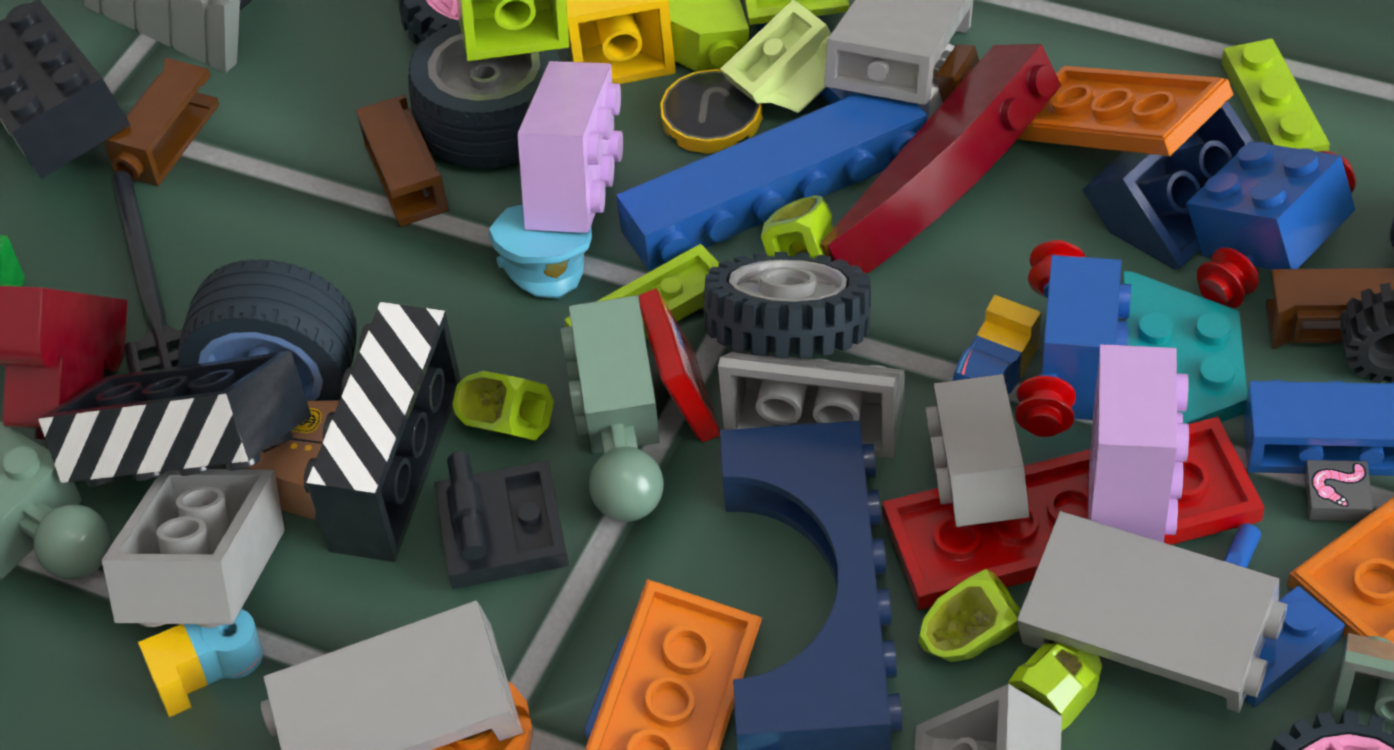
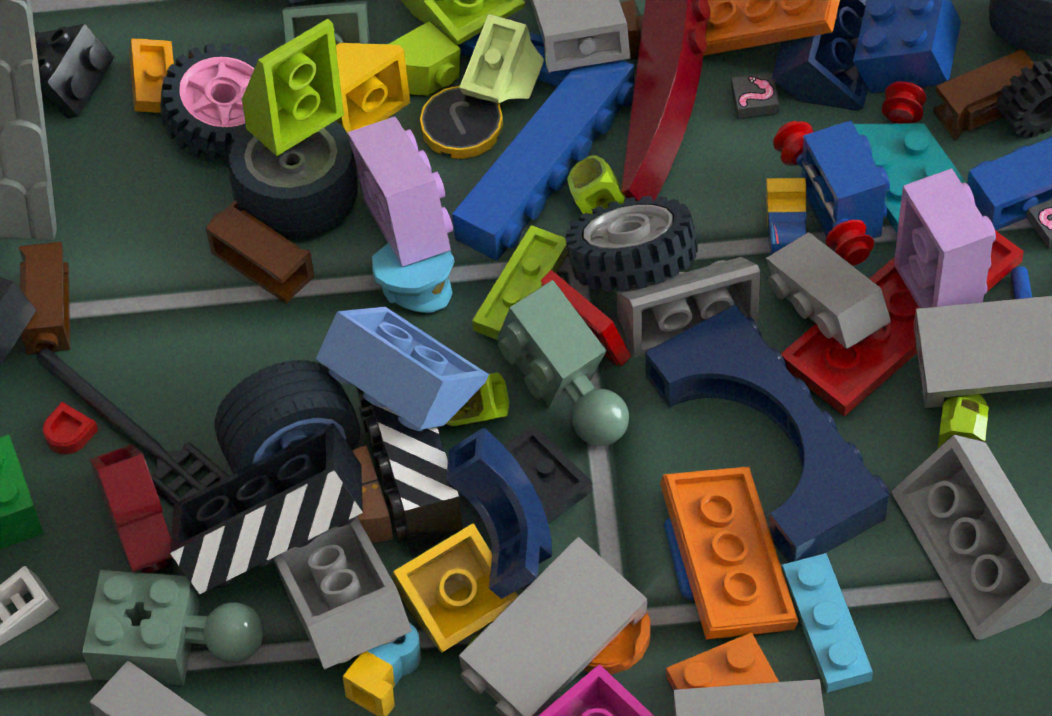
camera: 30 degrees left, 5 degrees up
(89, 263) = (68, 430): none -> red tile
(325, 595) = (450, 588): none -> yellow slope
(406, 319) = (399, 366): none -> medium blue slope
(433, 532) = (508, 507): none -> dark blue arch
(970, 619) = (887, 407): rock -> none
(1057, 205) = (755, 95): none -> dark grey tile

